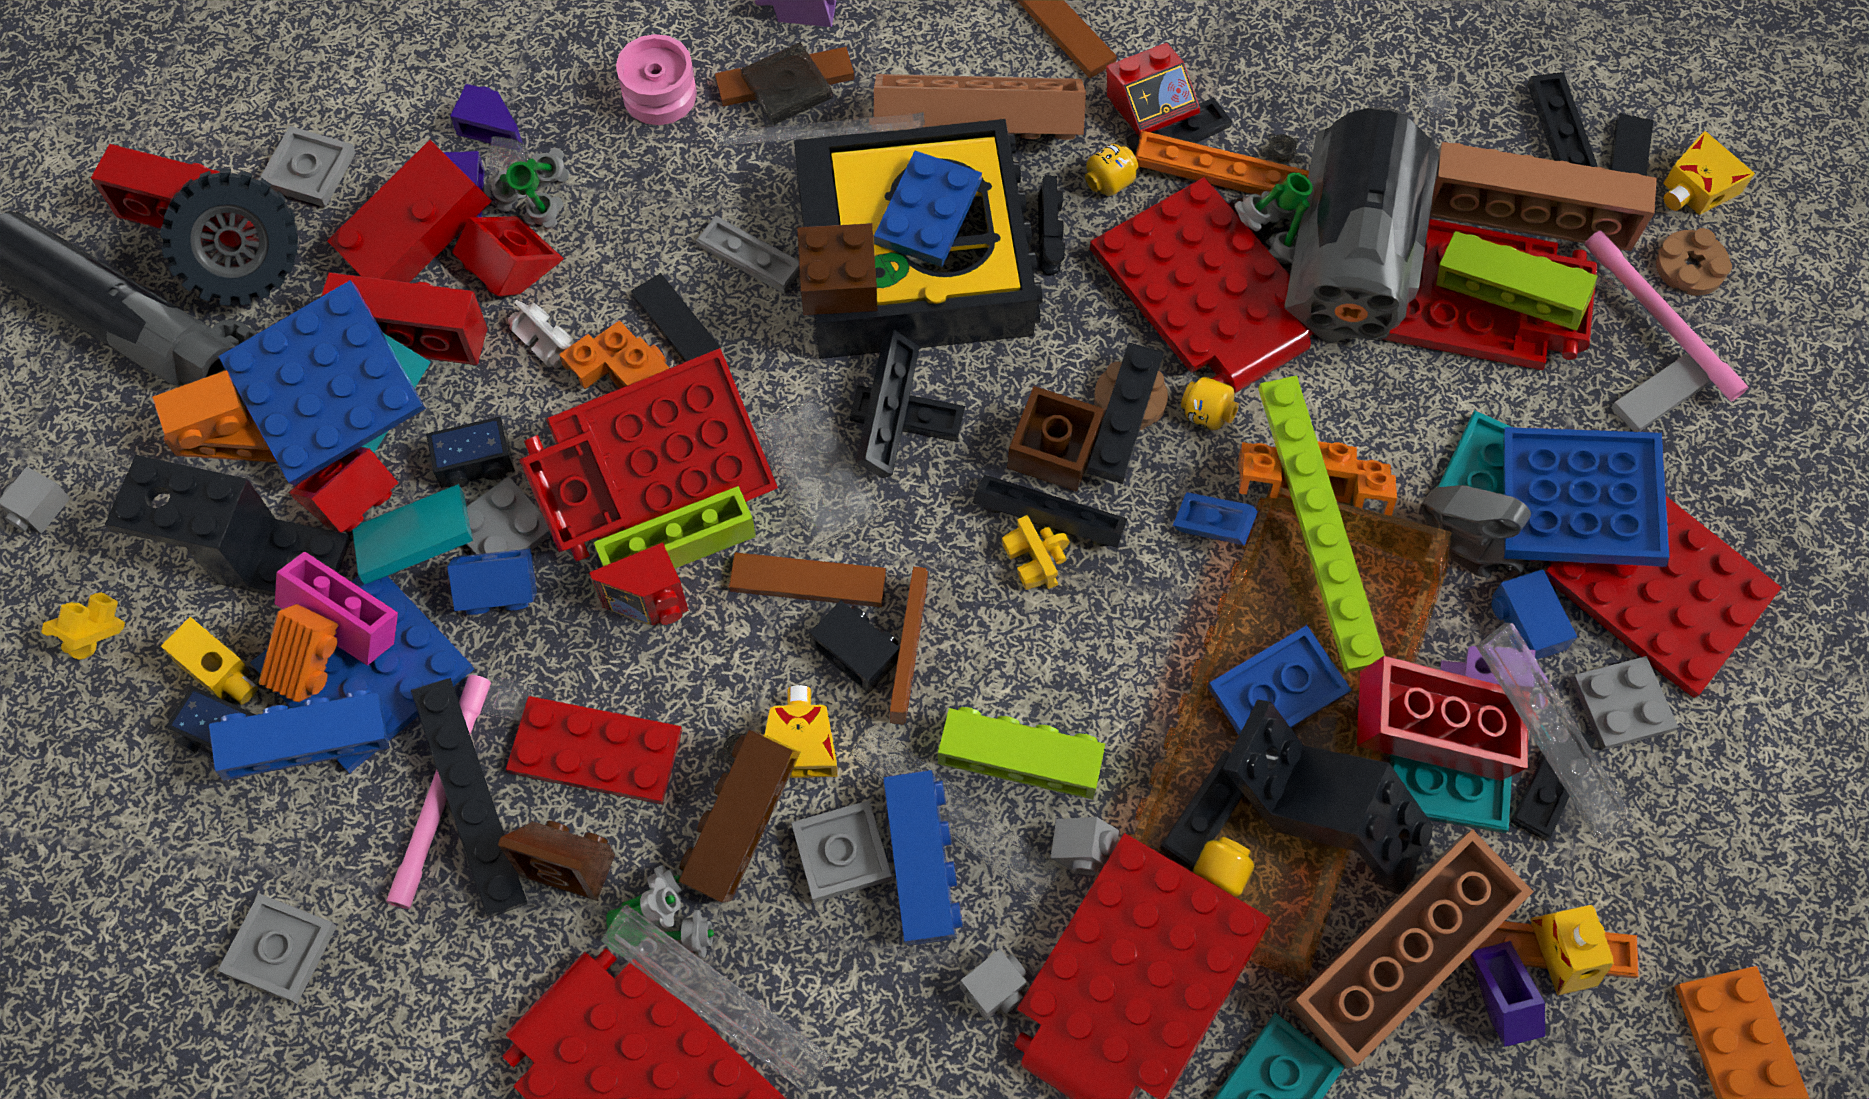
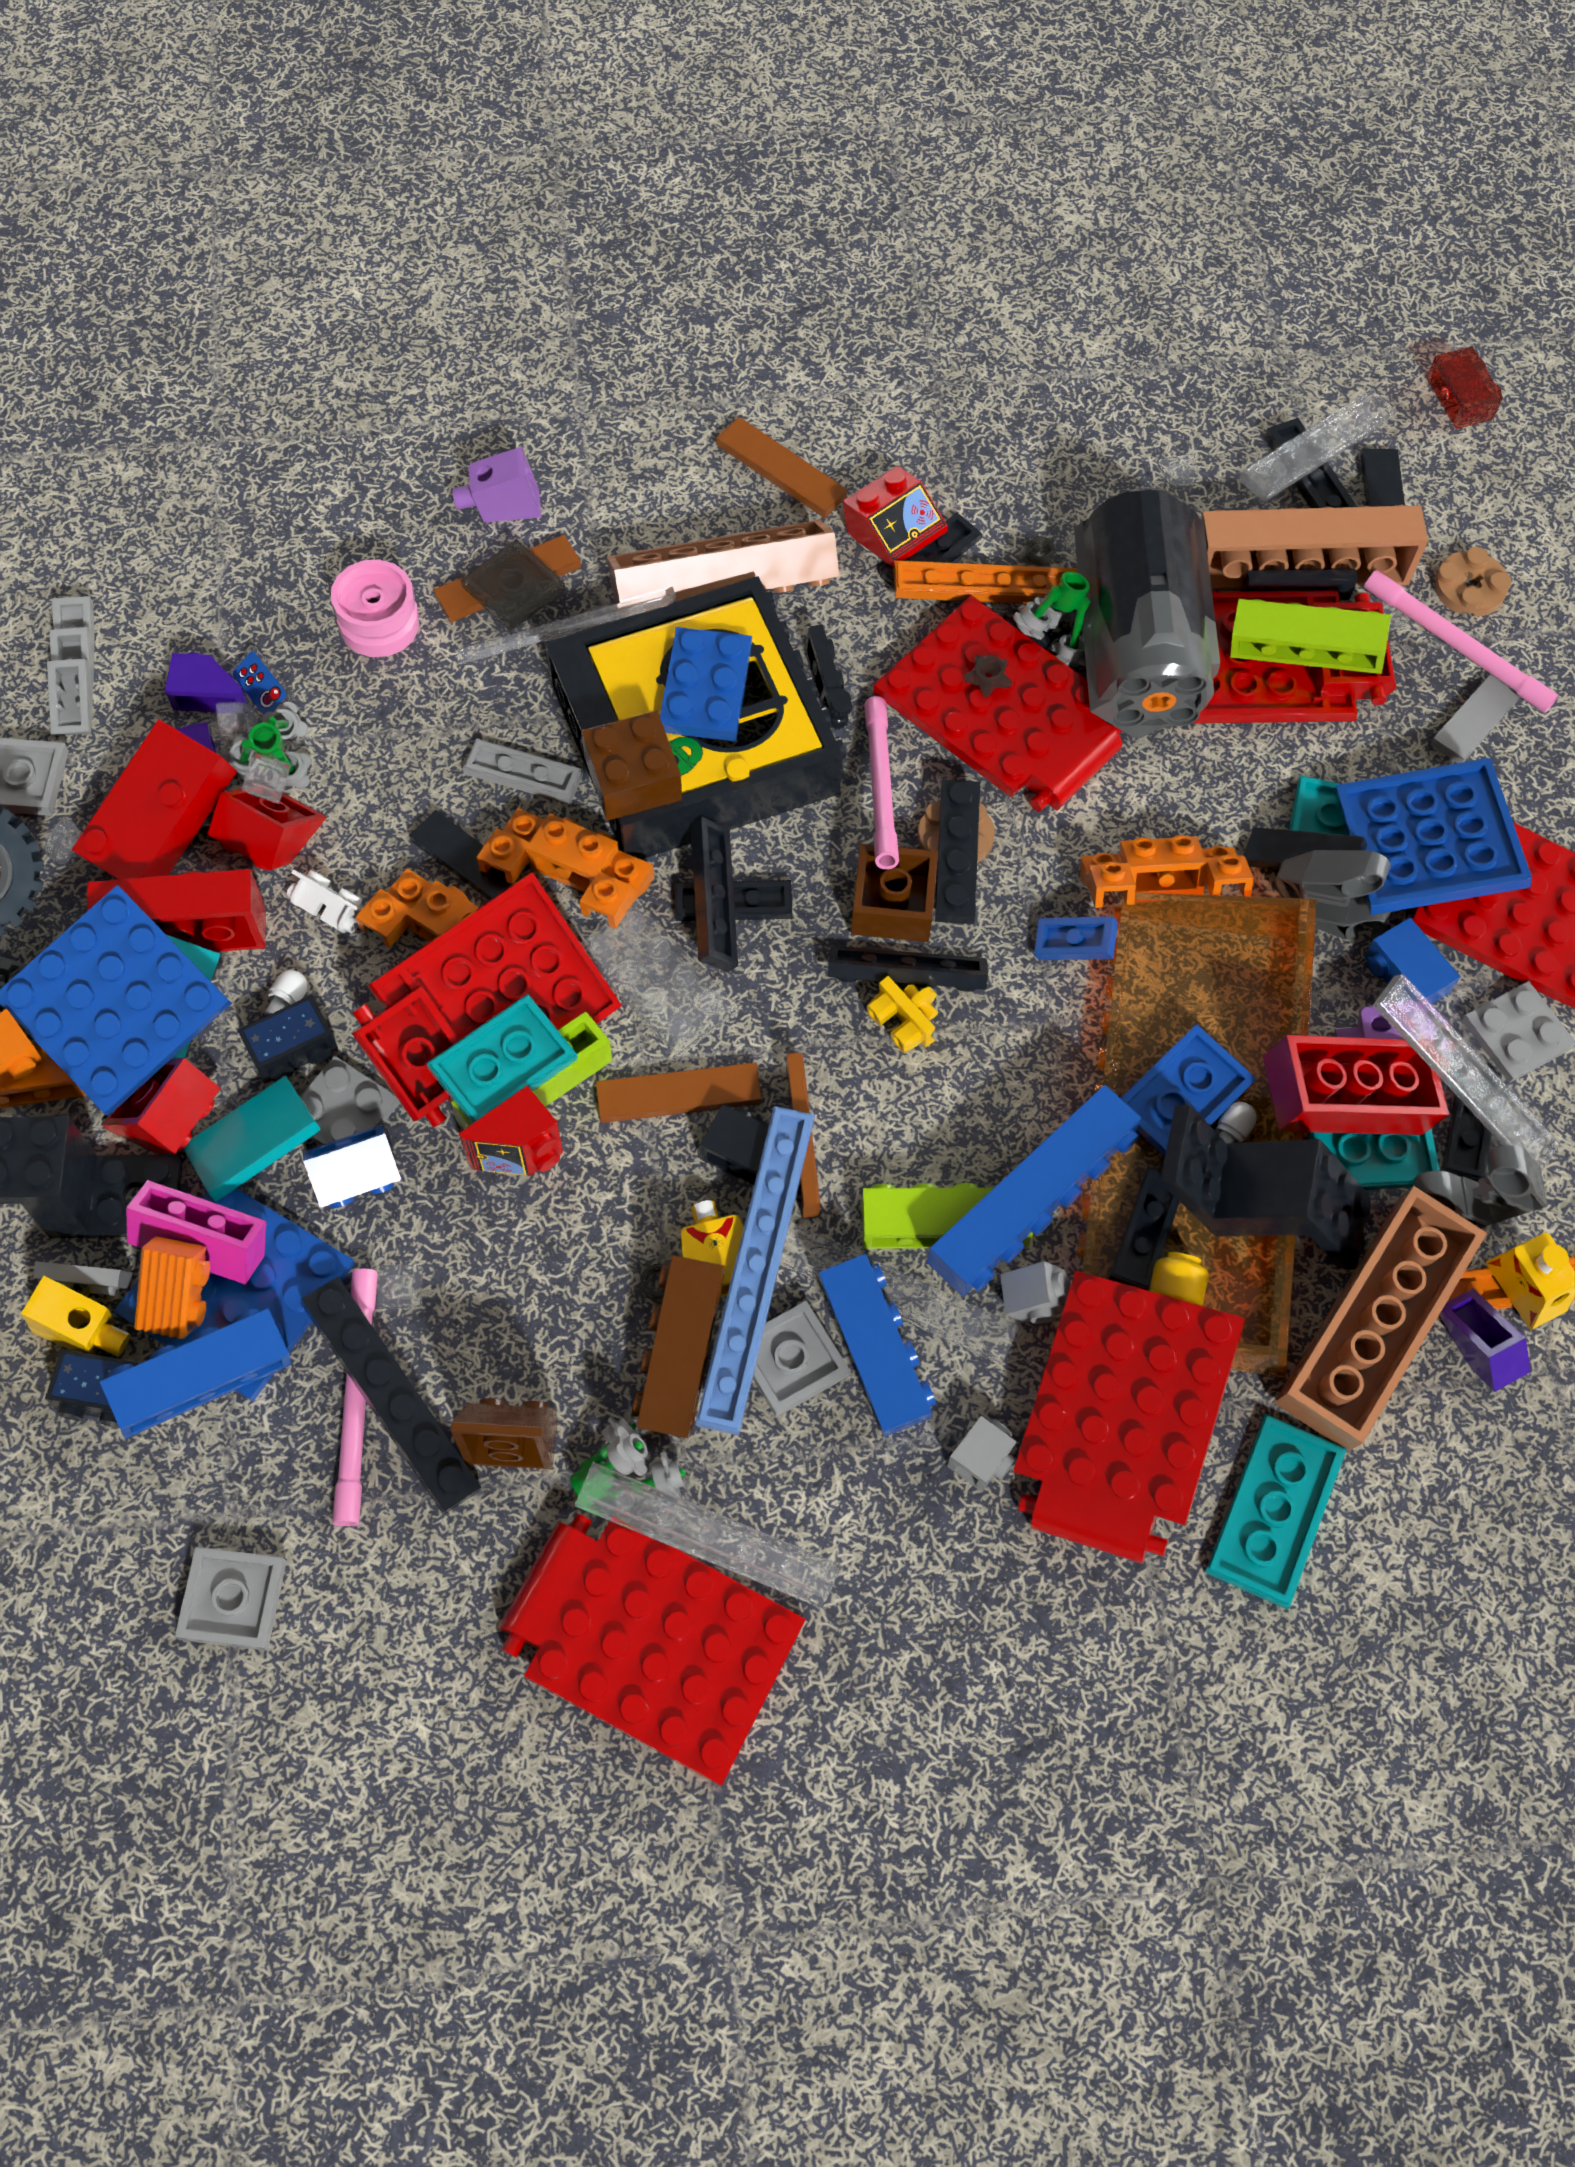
camera: 15 degrees left, 0 degrees up
(217, 621) = (101, 1280): none -> light grey plate
(323, 230) = (62, 840): none -> clear tile
(379, 78) = (71, 666): none -> light grey slope
(483, 406) = (286, 990): none -> white cylinder
(515, 212) = (266, 777): none -> clear tile
(537, 126) = (260, 683): none -> slope
(594, 750) = (506, 1316): red plate -> none
(649, 511) = (502, 1058): none -> teal tile
(769, 340) = (571, 856): none -> orange bracket
(826, 763) = (755, 1272): none -> medium blue tile
(1057, 384) = (885, 836): none -> bright pink piece
(1106, 748) = (1034, 1191): none -> blue brick
(1111, 169) = (874, 607): yellow head -> none
(1201, 245) = (991, 665): none -> clear smoke plate
(1209, 403) = (1038, 824): yellow head -> none
(1321, 524) = (1185, 919): lime plate -> none
(1321, 728) = (1236, 1122): none -> white cylinder
(1428, 472) = (1272, 846): none -> black tile
(1533, 227) = (1302, 580): none -> black tile
(1567, 855) = (1511, 1191): none -> dark grey connector
(1574, 101) = (1317, 445): none -> clear tile
(1705, 176) = (1463, 495): yellow torso -> none
(1735, 74) = (1464, 387): none -> clear red brick

